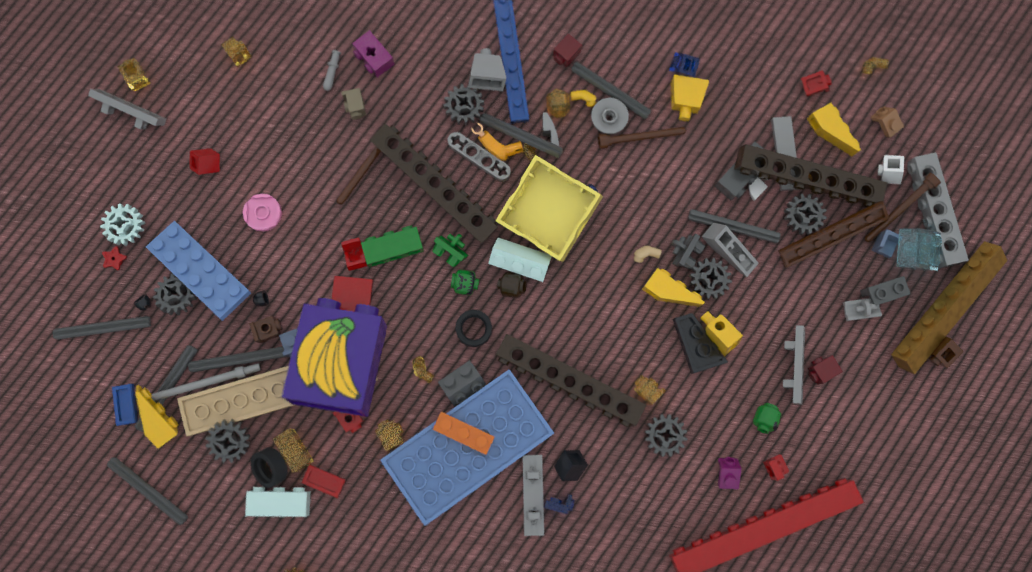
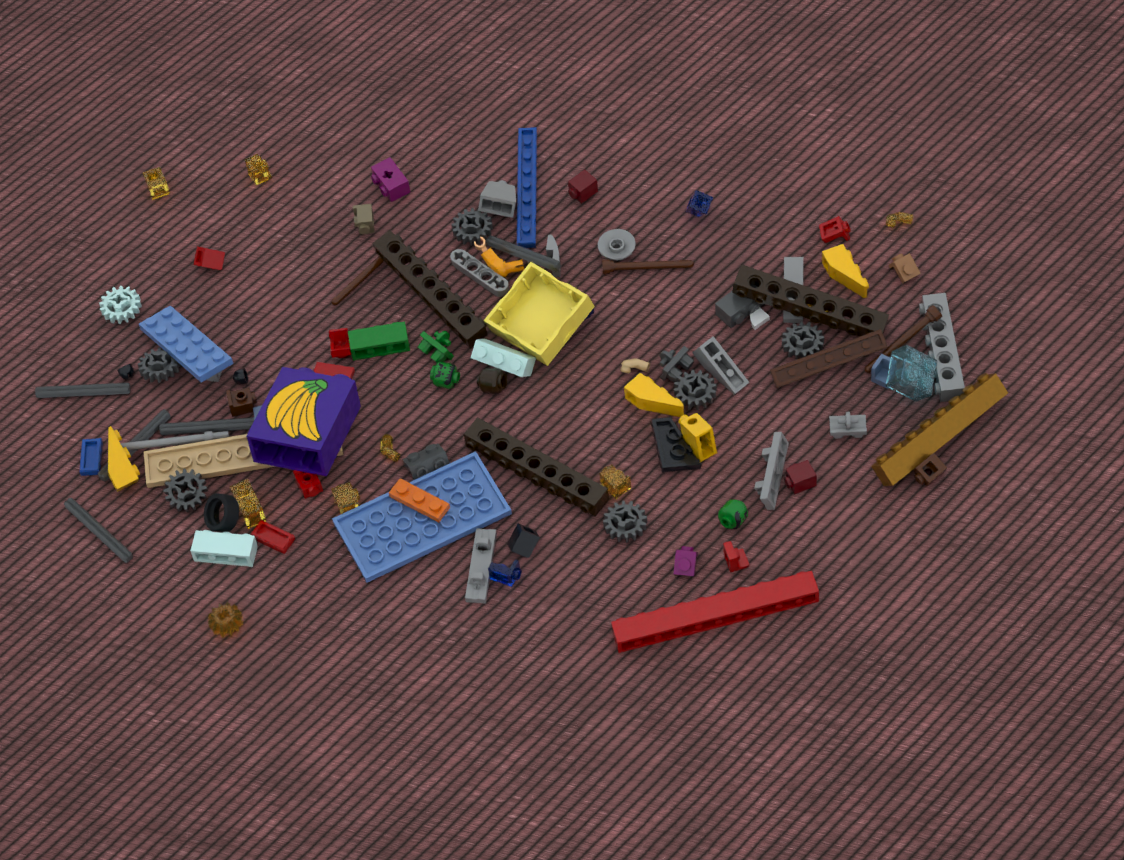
camera: 20 degrees right, 25 degrees down
(111, 102) = (130, 204): light grey hinge -> none
(119, 258) = (105, 338): red plate -> none
(262, 212) = (256, 306): bright pink tile -> none
(333, 65) = (349, 188): light grey piece -> none
(469, 314) = (449, 427): black tyre -> none
(558, 103) = (566, 230): clear yellow head -> none
(585, 95) = (593, 227): yellow arm -> none
(610, 90) = (621, 223): dark grey axle -> none
(687, 95) = (699, 232): yellow torso -> none
(735, 226) = (731, 348): dark grey axle -> none
(887, 291) = (874, 408): dark grey bracket -> none
(891, 169) = (898, 306): white brick -> none

